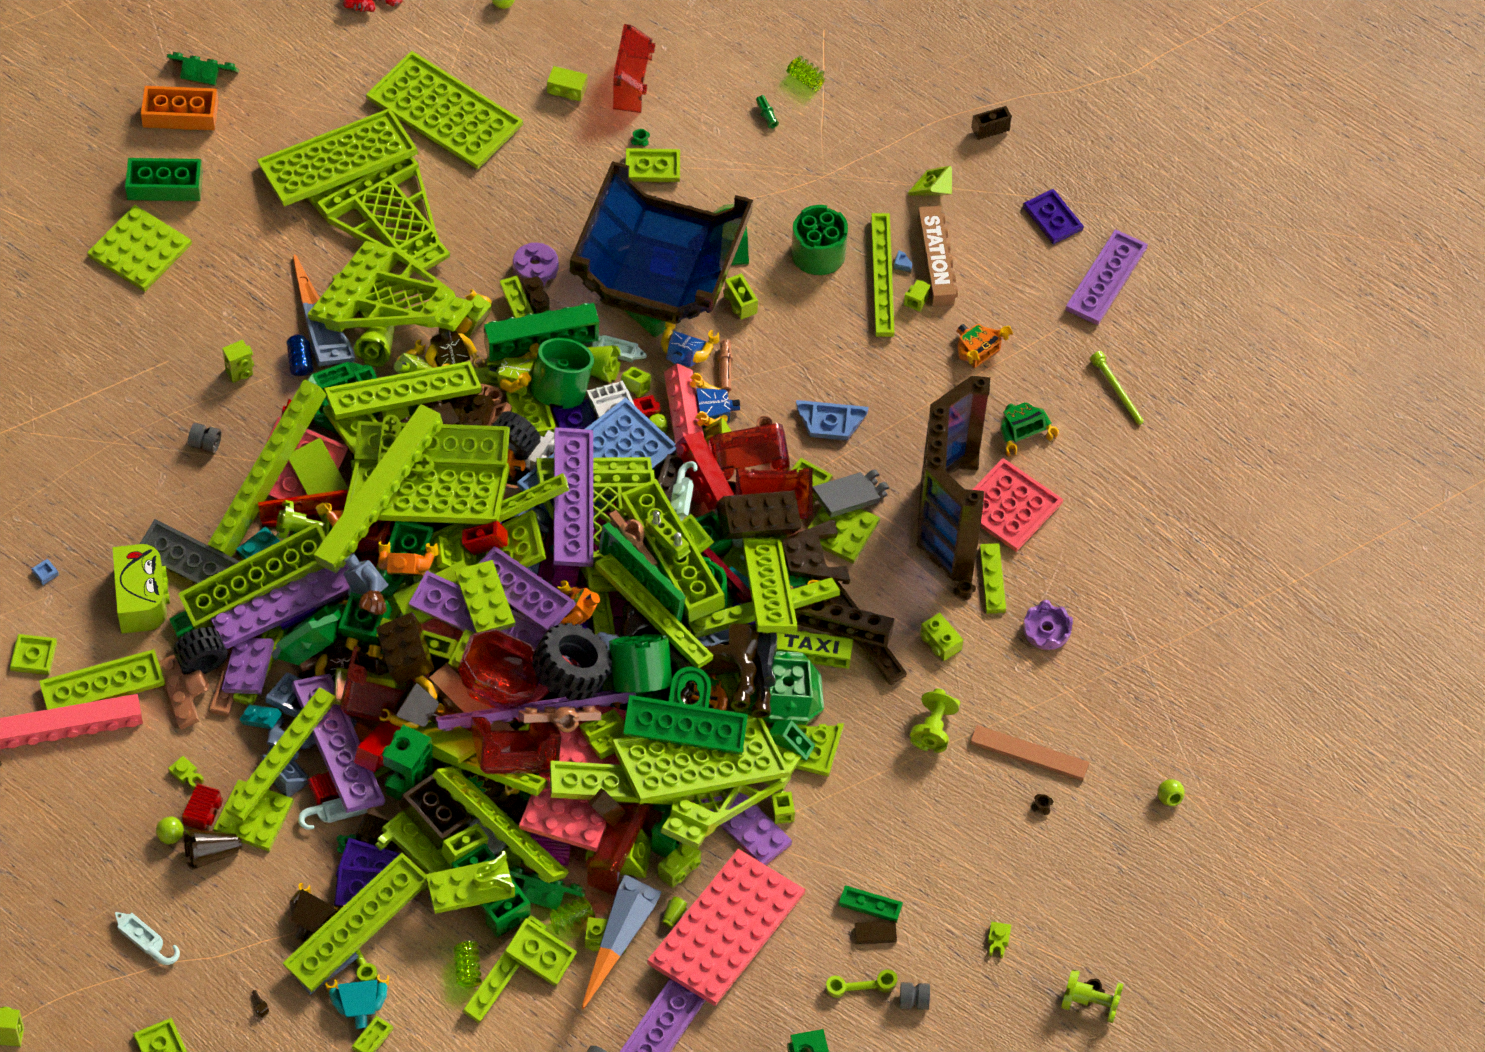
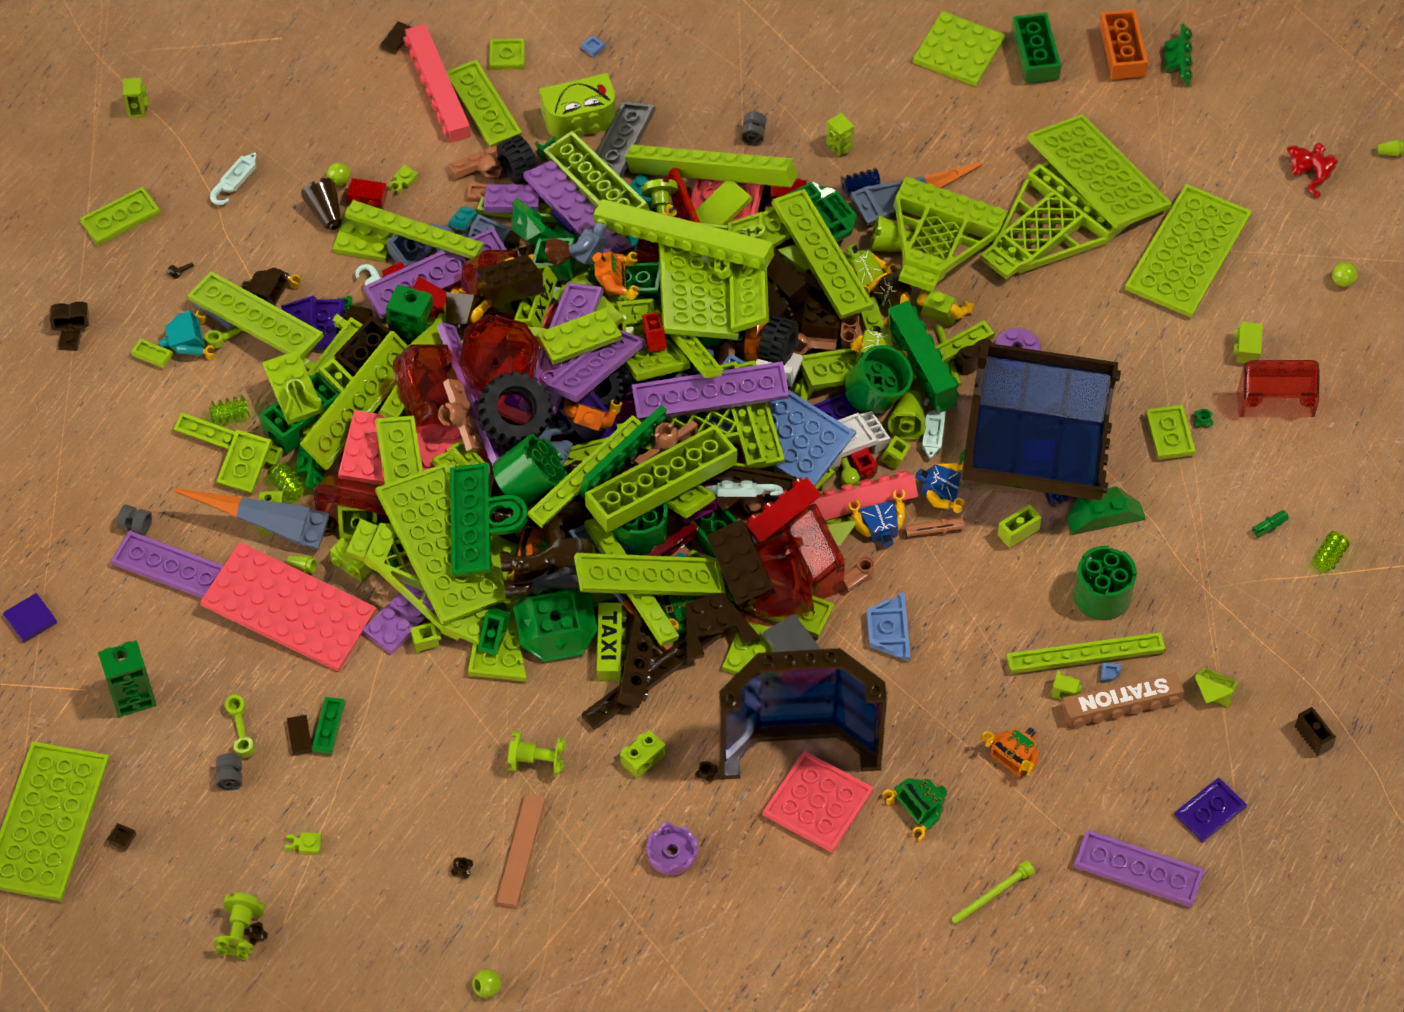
camera: 85 degrees right, 0 degrees up
(607, 807) = (373, 469): dark brown tile -> none
(667, 535) = (665, 463): lime piece -> none
(992, 578) = (726, 796): lime plate -> none

